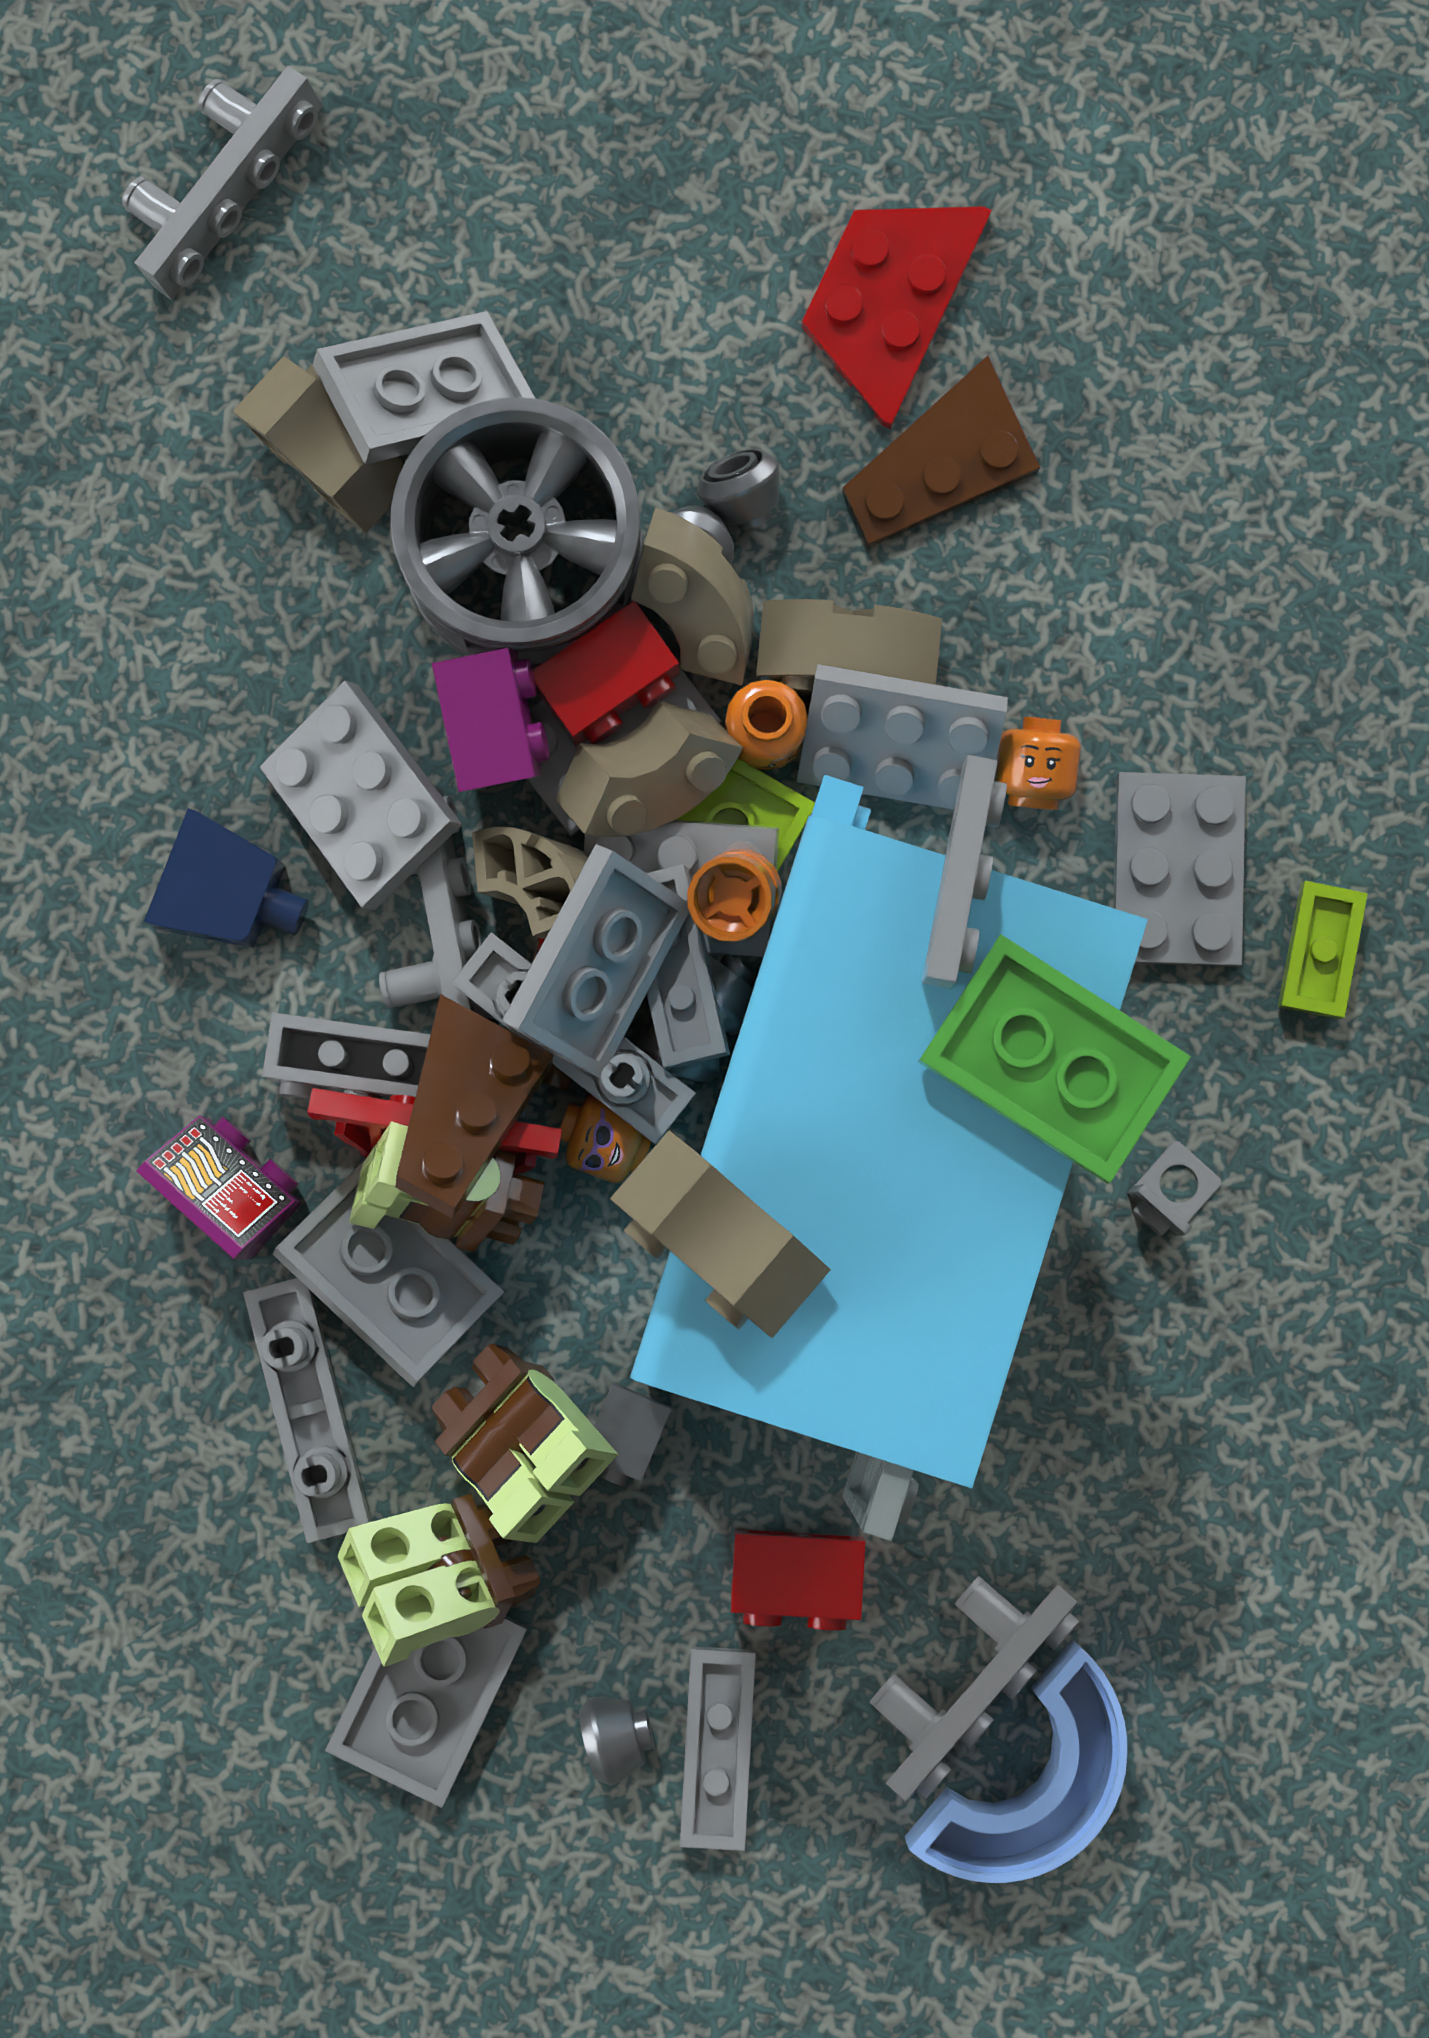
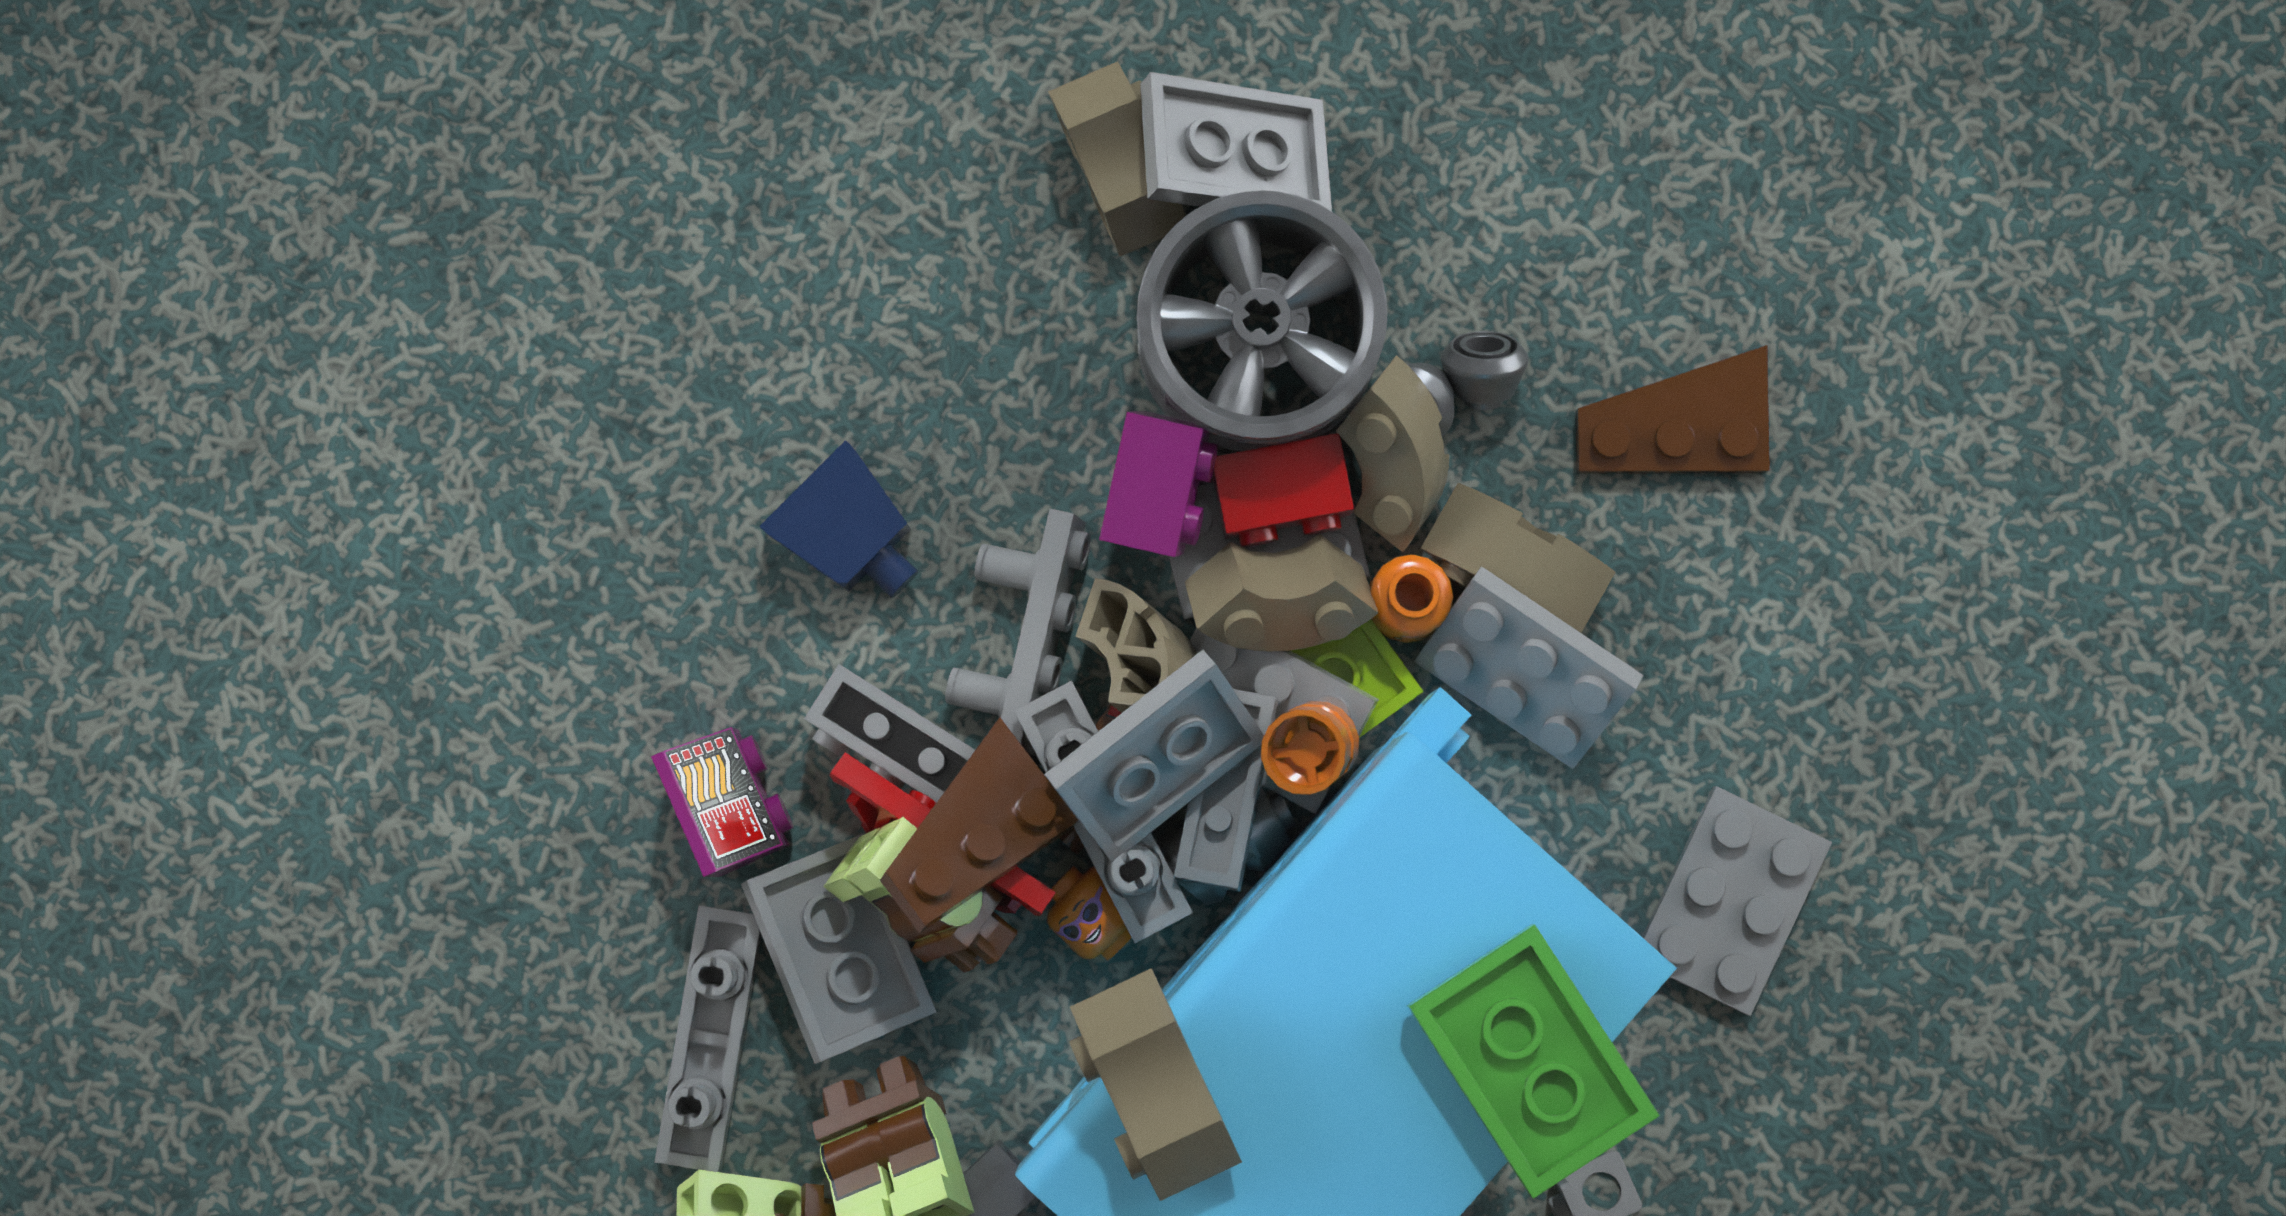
camera: 25 degrees right, 0 degrees up
(360, 795) = (1007, 498): light grey plate -> none
(890, 295) = (1701, 249): red wing -> none
(964, 872) = (1526, 852): light grey plate -> none
(1038, 764) = (1644, 746): orange head -> none
(1322, 950) = (1831, 1035): lime plate -> none

